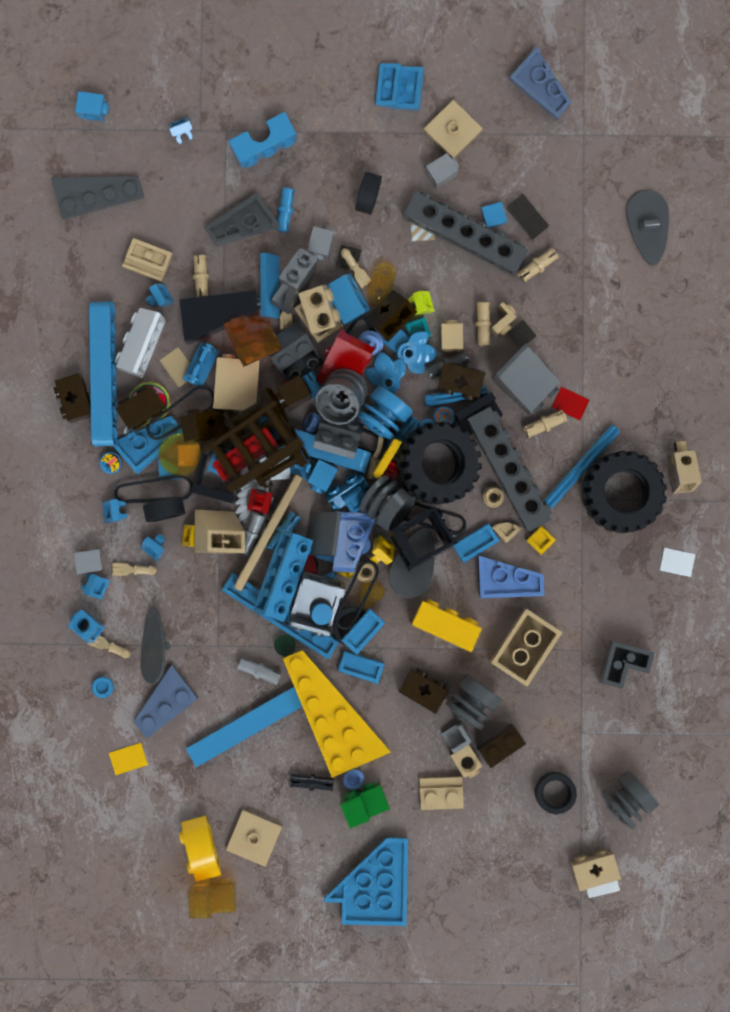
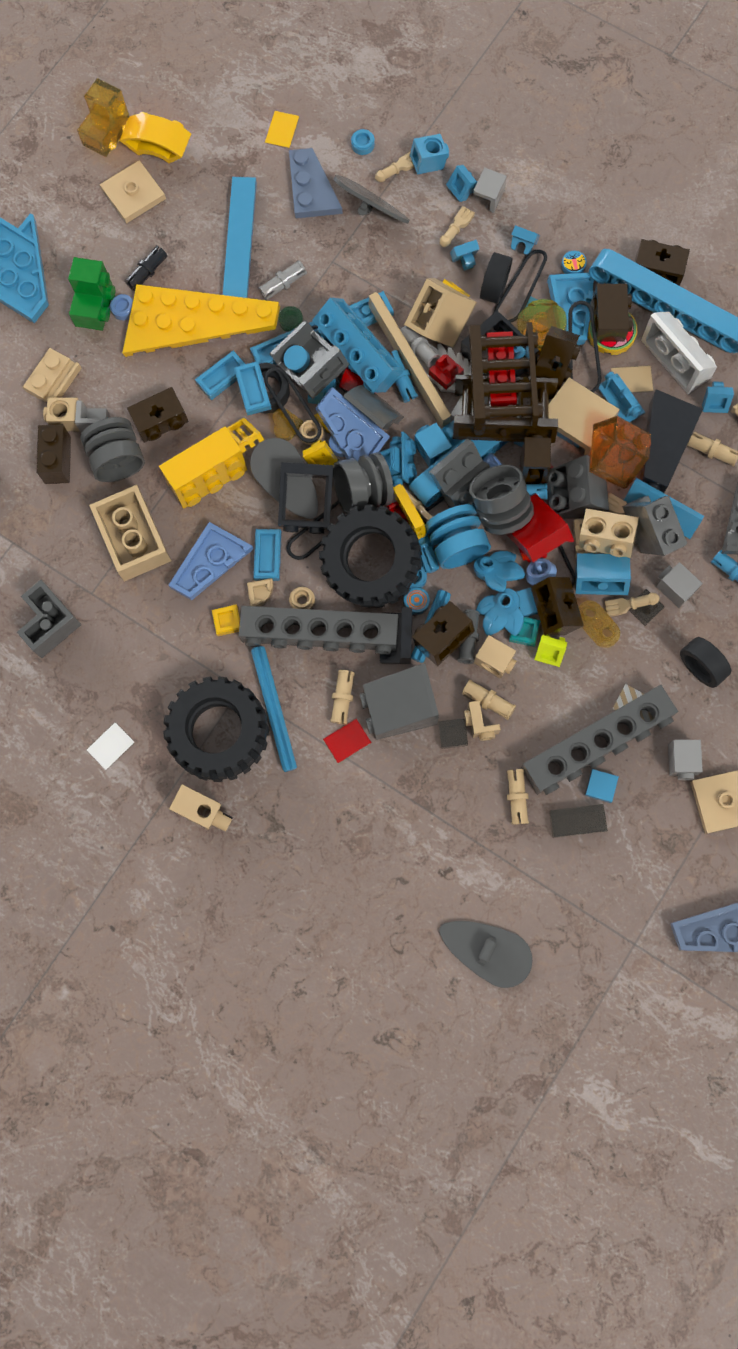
camera: 130 degrees right, 10 degrees down
(407, 604) = (247, 440): none -> yellow tile

